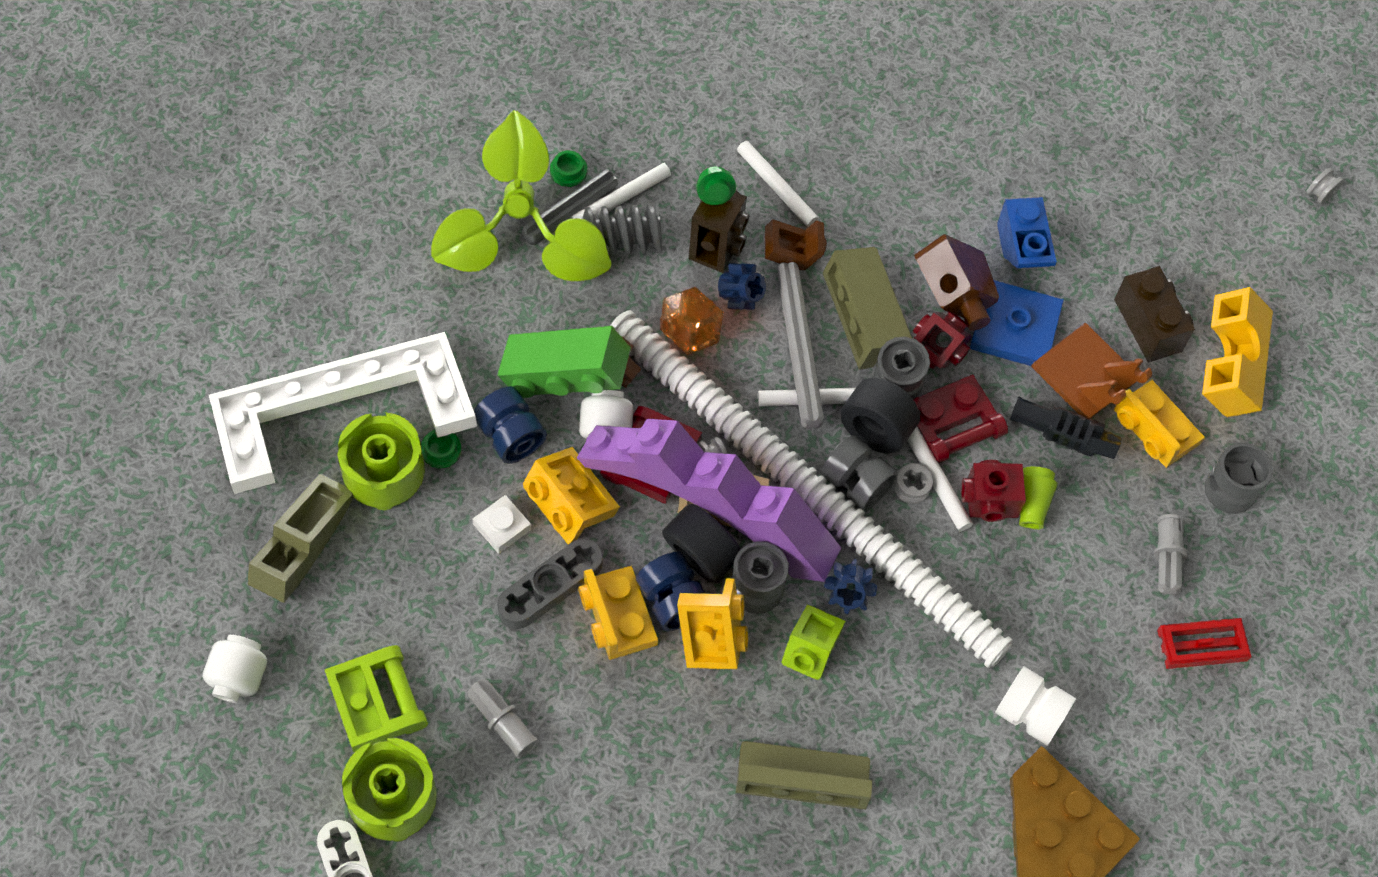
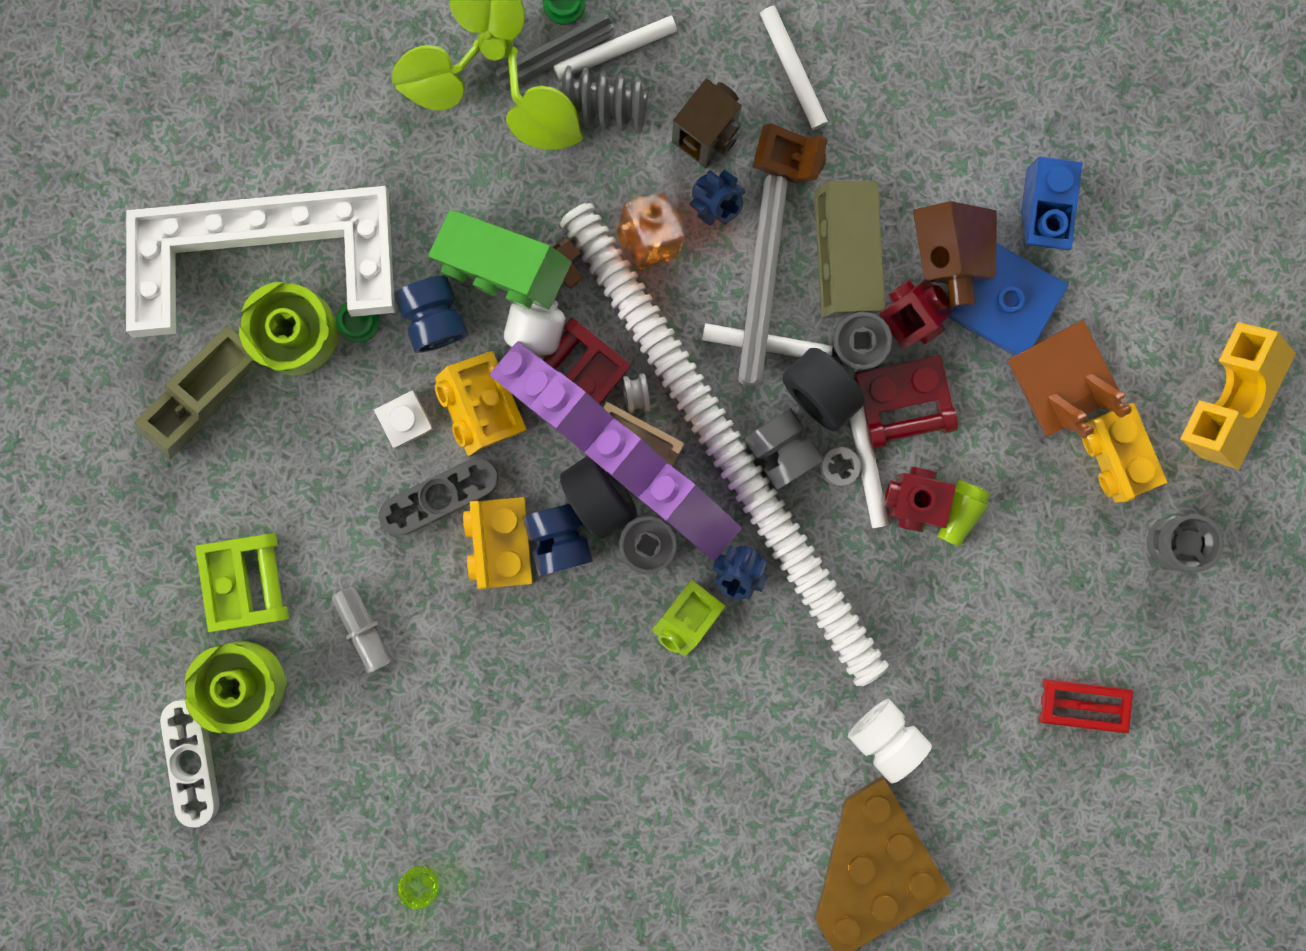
camera: 15 degrees right, 25 degrees up
(235, 668) = (108, 525): white head -> none
(713, 628) = (584, 597): yellow bracket -> none
(715, 185) = (706, 90): green plate -> none
(804, 775) = (642, 752): olive panel -> none
(1067, 428) = (1021, 440): black hinge -> none
(1154, 313) = (1163, 326): dark brown brick -> none
(1170, 553) = (1084, 605): light grey axle -> none

